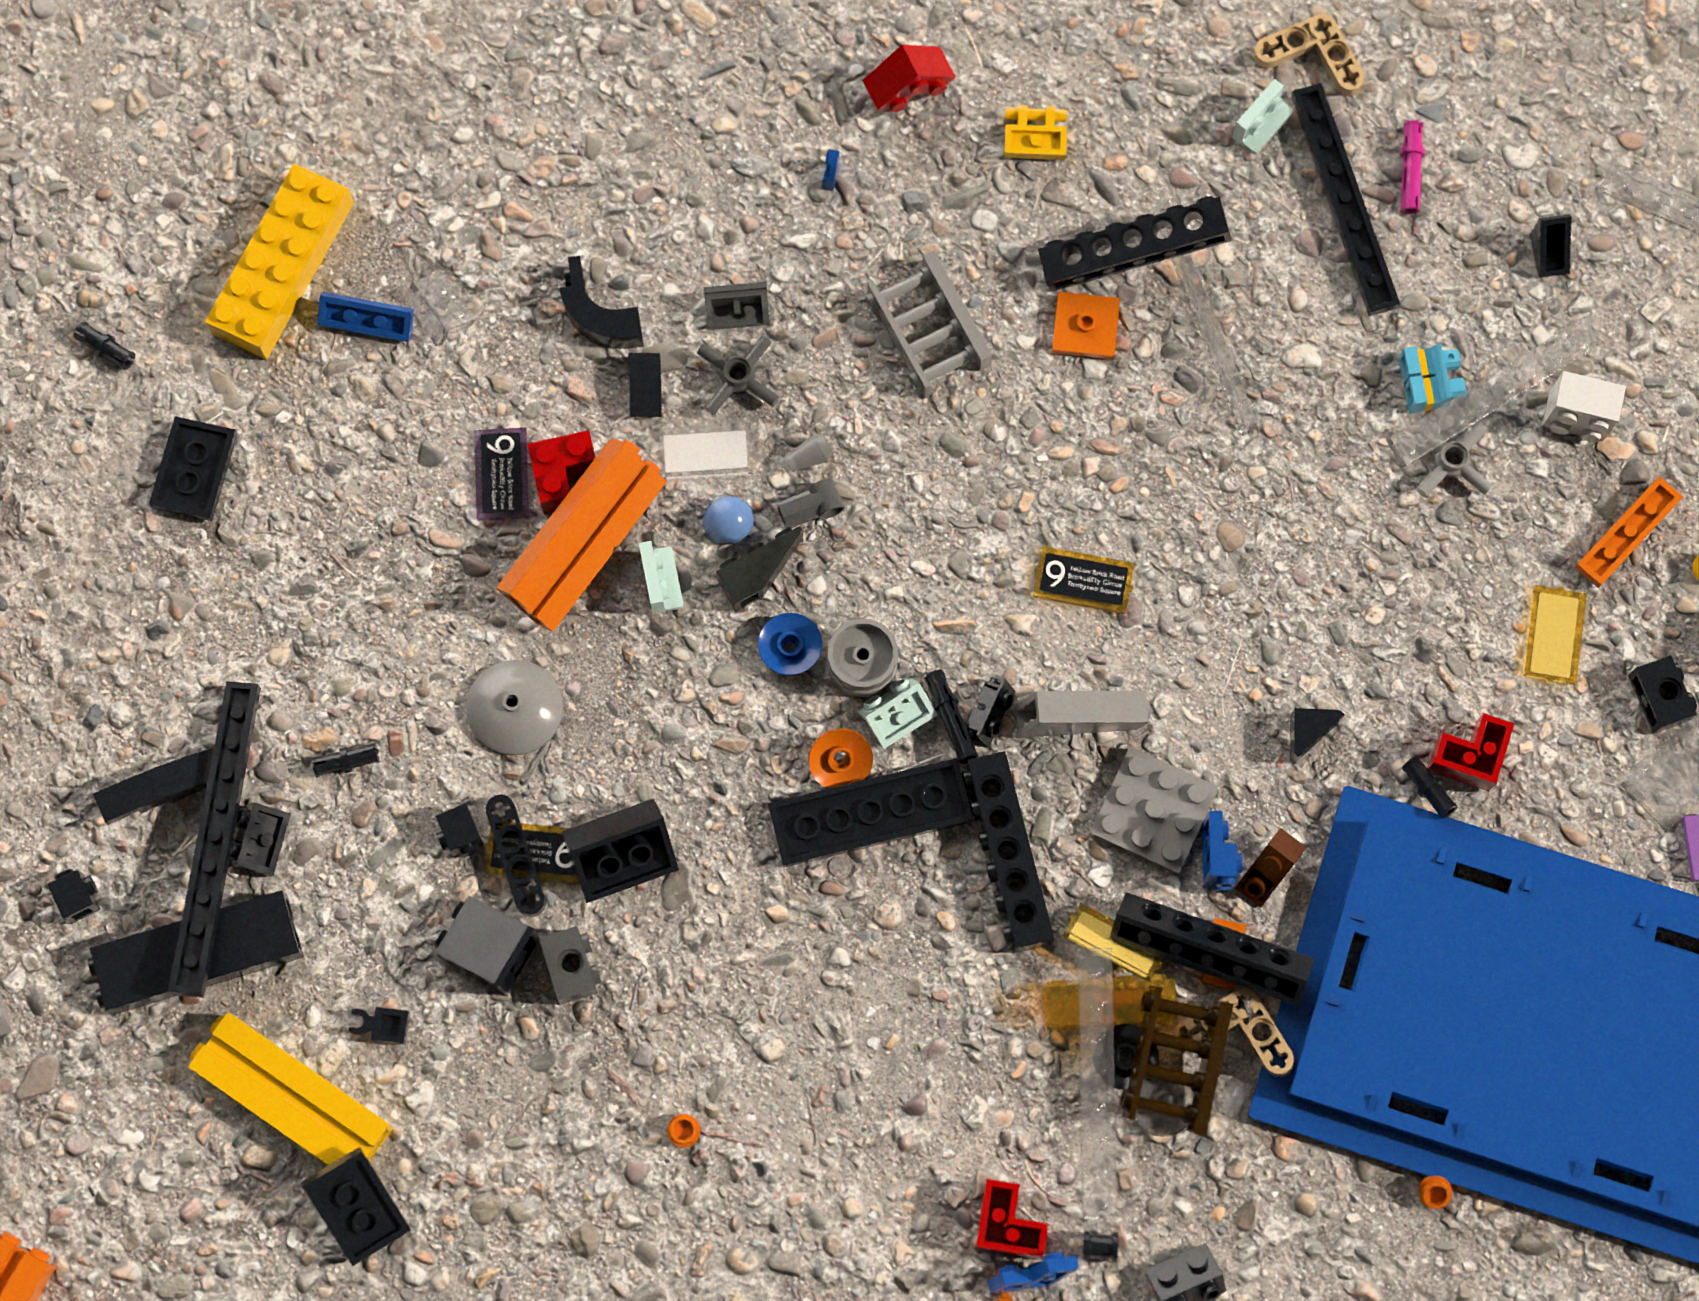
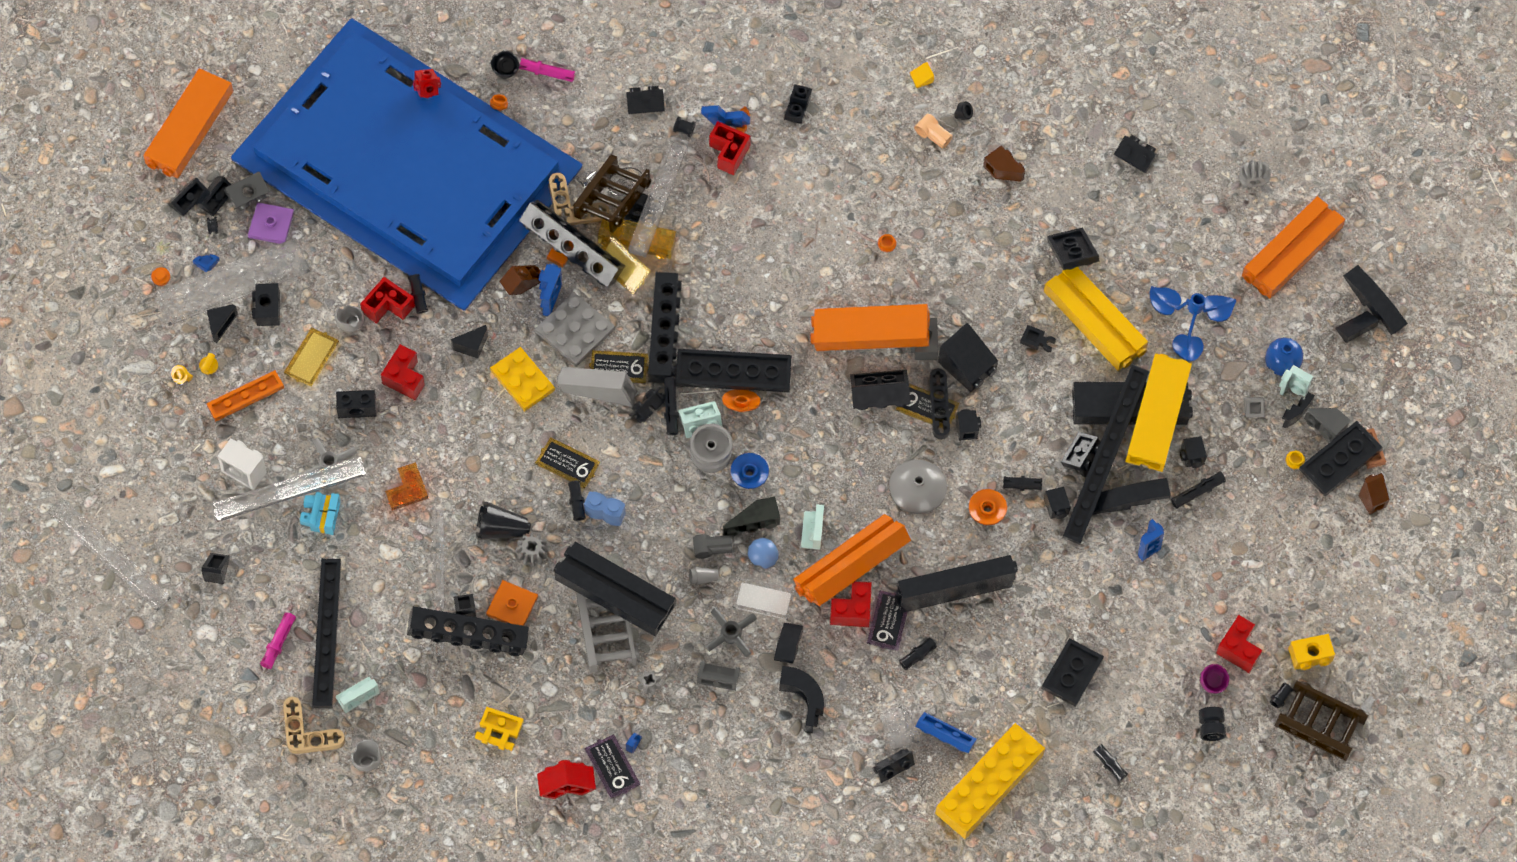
camera: 165 degrees left, 10 degrees down
(53, 834) = (1204, 486): none -> black pin
(84, 1179) = (1217, 308): none -> blue plant
(108, 705) = (1151, 541): none -> blue bracket
(139, 930) = (1158, 412): none -> yellow brick
(278, 733) = (1057, 503): none -> black brick
(380, 686) = (987, 499): none -> orange dish
(406, 542) = (955, 583): none -> black brick
(424, 257) = (901, 761): none -> black hinge
(441, 429) = (917, 653): none -> black pin
(663, 946) = (871, 327): none -> orange brick
(833, 253) = (650, 676): none -> light grey gear
(852, 132) = (612, 766): none -> piece
(935, 369) = (614, 588): none -> black brick
(1005, 511) = (608, 509): none -> medium blue brick
(1046, 515) = (576, 500): none -> black pin
(1059, 768) = (632, 363): none -> piece
(1081, 425) = (535, 543): none -> light grey gear
(1149, 435) = (500, 523): none -> black cone
(1154, 293) = (465, 605): none -> black slope
(1206, 697) = (522, 379): none -> yellow plate
(1212, 32) = (366, 755): none -> light grey hair
(1307, 456) = (411, 490): none -> clear orange plate
(1377, 1286) = (548, 70): none -> dark pink pin
(1403, 635) = (400, 374): none -> red brick
(1450, 566) = (356, 404): none -> black brick
(1453, 1267) = (505, 64): none -> black hair
(1524, 706) = (349, 318): none -> light grey hair
(1571, 1158) = (426, 83): none -> red brick

